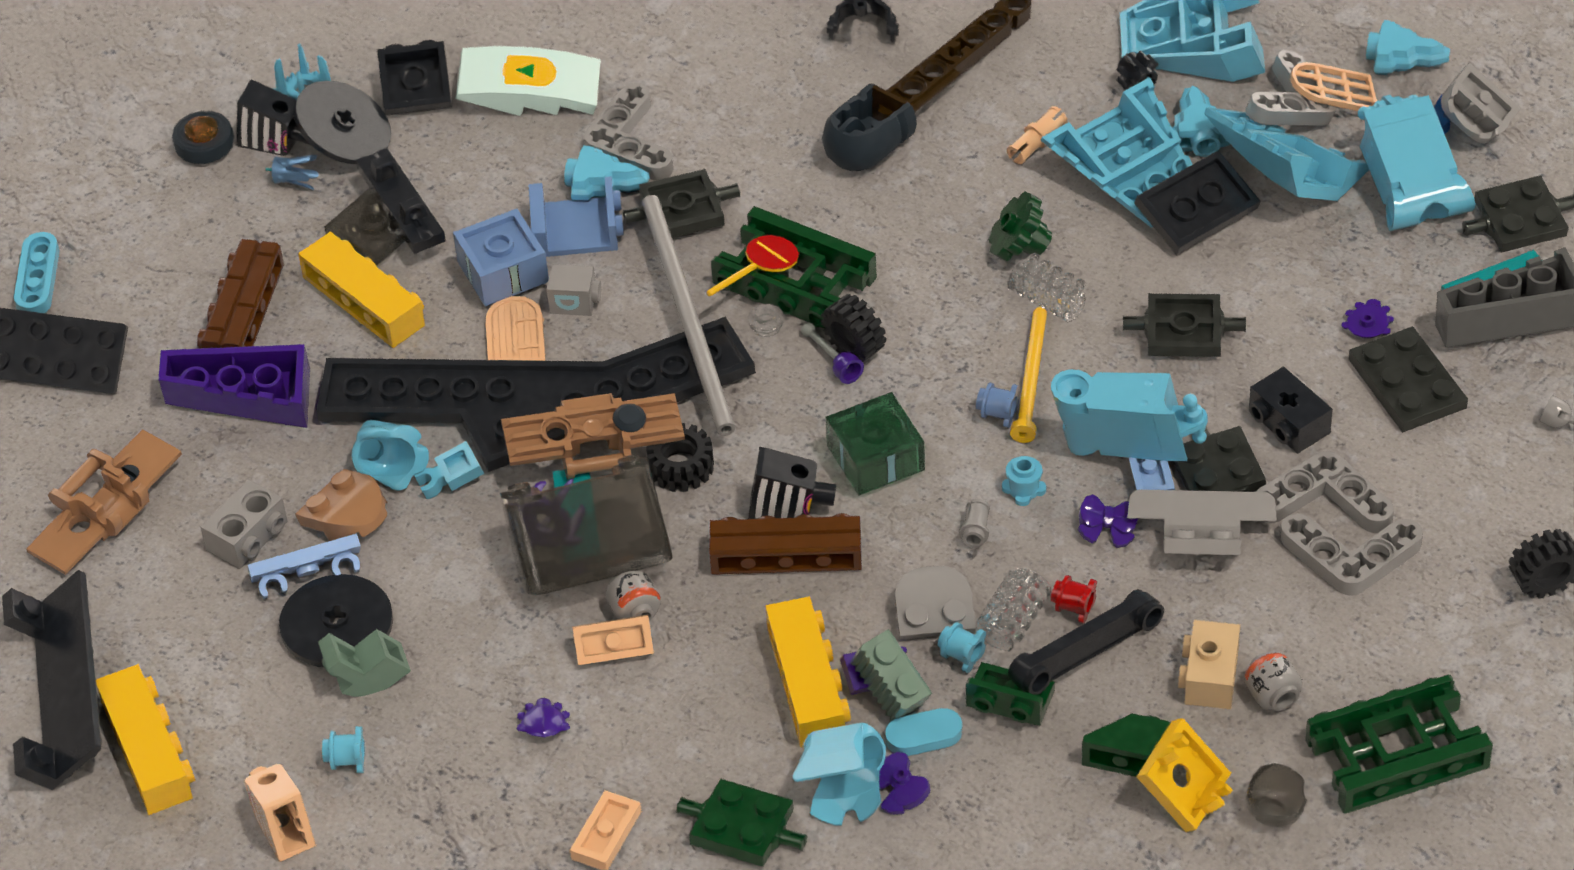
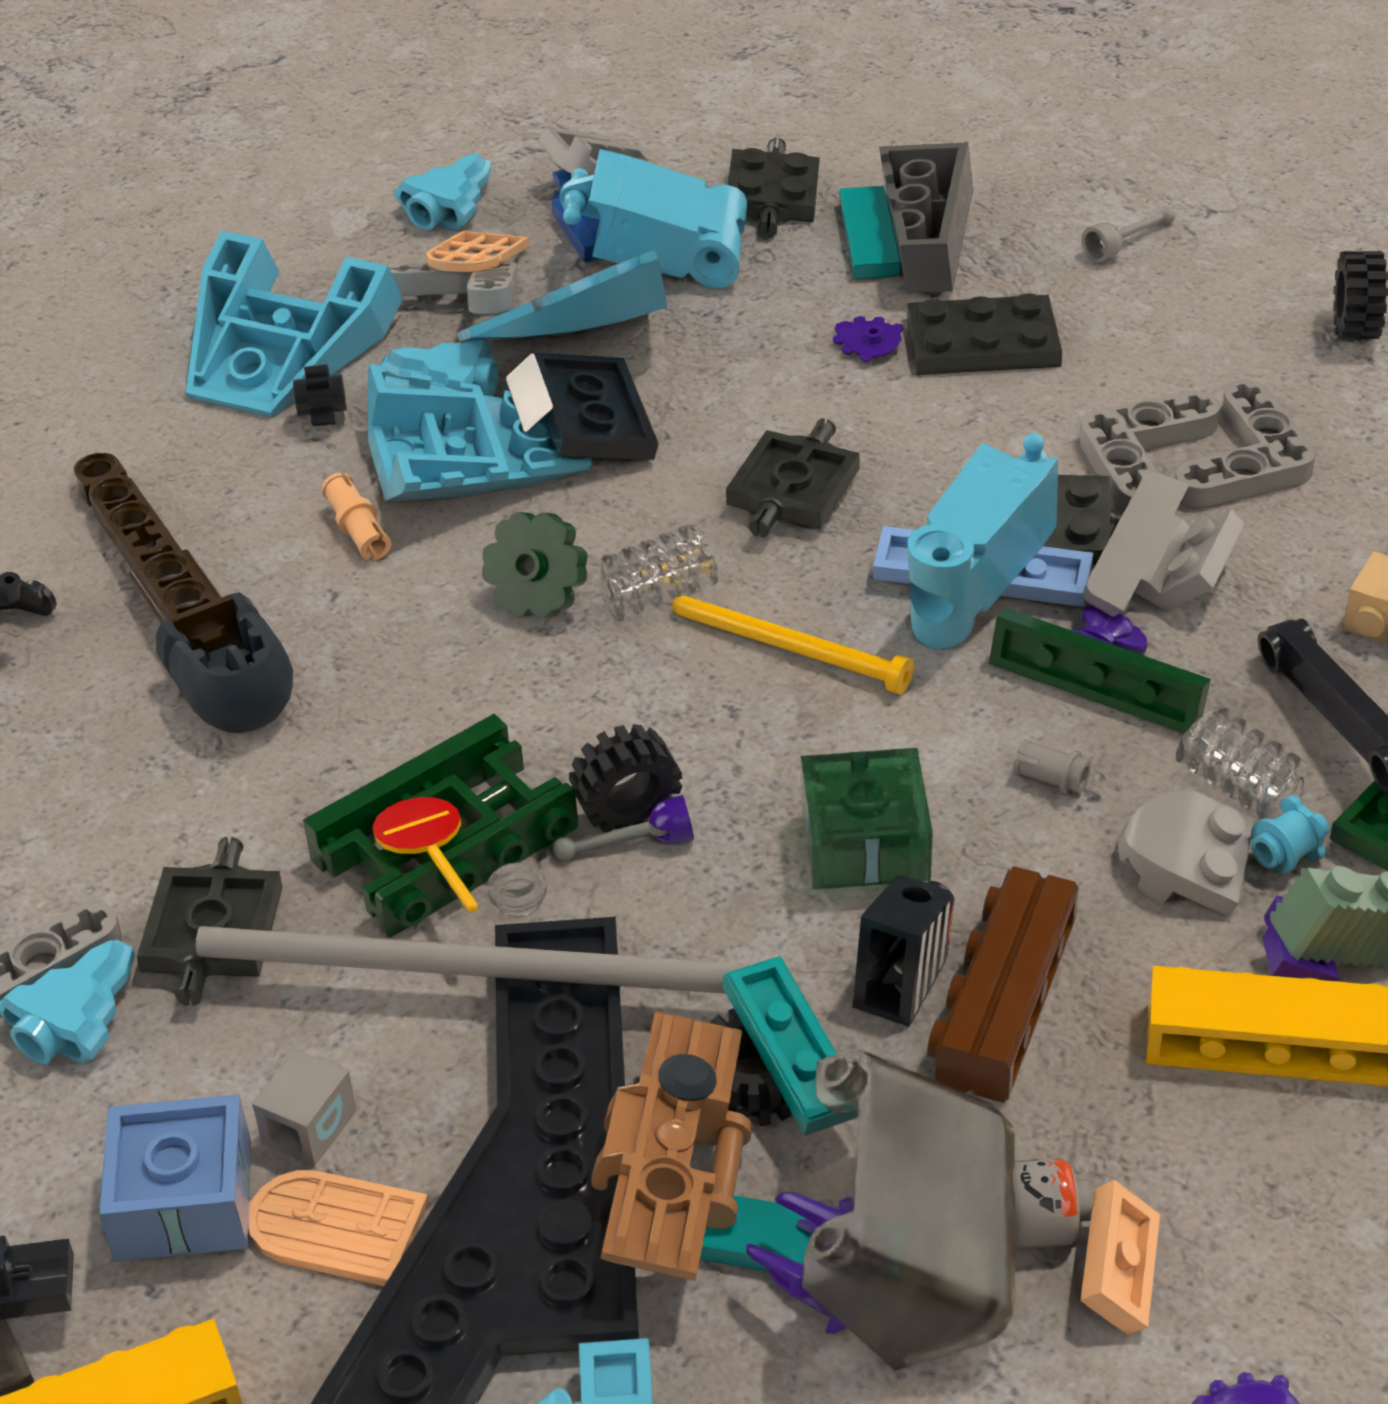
camera: 70 degrees left, 5 degrees down
(576, 225) = (158, 1050): medium blue panel -> none
(689, 454) = (785, 1037): none -> teal tile
(998, 402) = (841, 679): medium blue brick -> none
(1023, 479) = (993, 696): medium azure brick -> none
(1074, 597) = (1246, 695): red brick -> none
(1075, 482) = (1098, 671): none -> dark green plate
(1182, 165) = (529, 392): none -> white sticker
(1290, 410) = (996, 419): black brick -> none

